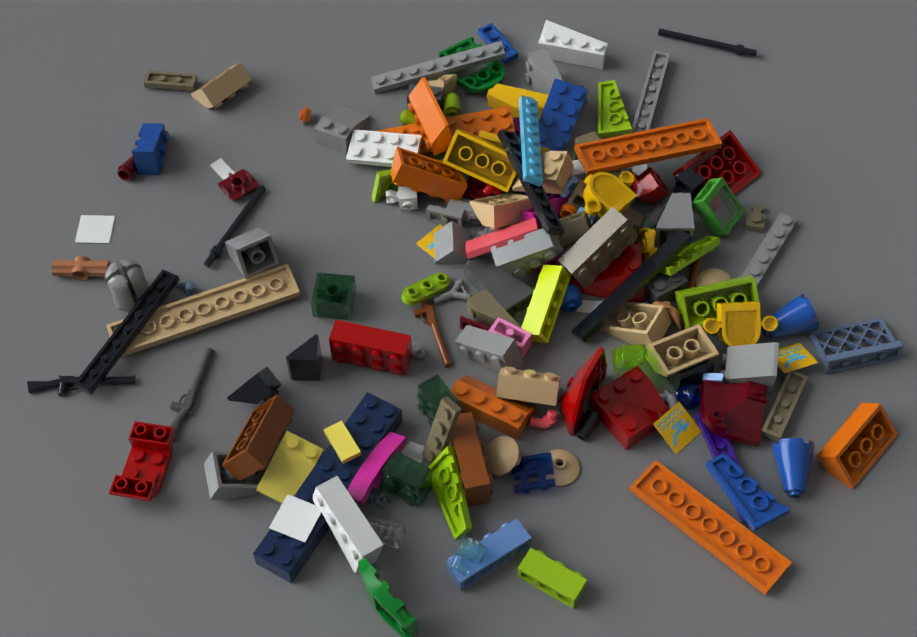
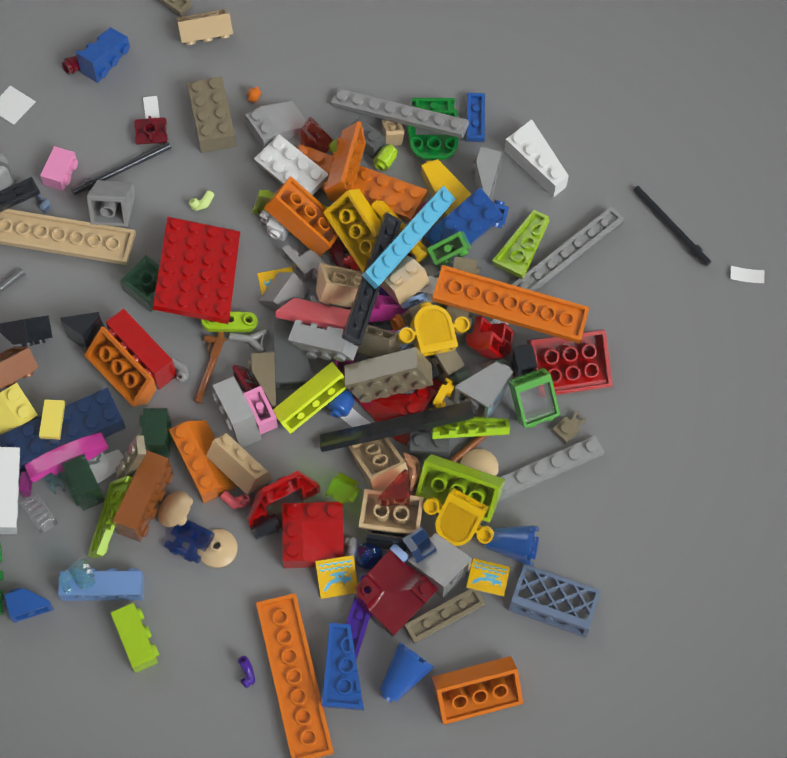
camera: 30 degrees right, 10 degrees up
(180, 252) = (59, 168): none -> bright pink brick
(282, 146) = (211, 114): none -> dark tan brick
(327, 216) = (202, 203): none -> yellowish green arm
(366, 369) = (121, 369): none -> orange slope
(370, 262) = (197, 270): none -> red plate
(382, 118) = (314, 136): none -> clear red slope
(434, 610) = (25, 604): none -> blue slope
(565, 134) = (450, 248): none -> bright green brick
(672, 550) = (247, 668): none -> dark purple arm
(680, 328) = (397, 492): none -> clear red slope
(726, 362) = (419, 544): none -> dark blue panel
(788, 48) = (747, 275): none -> white sticker

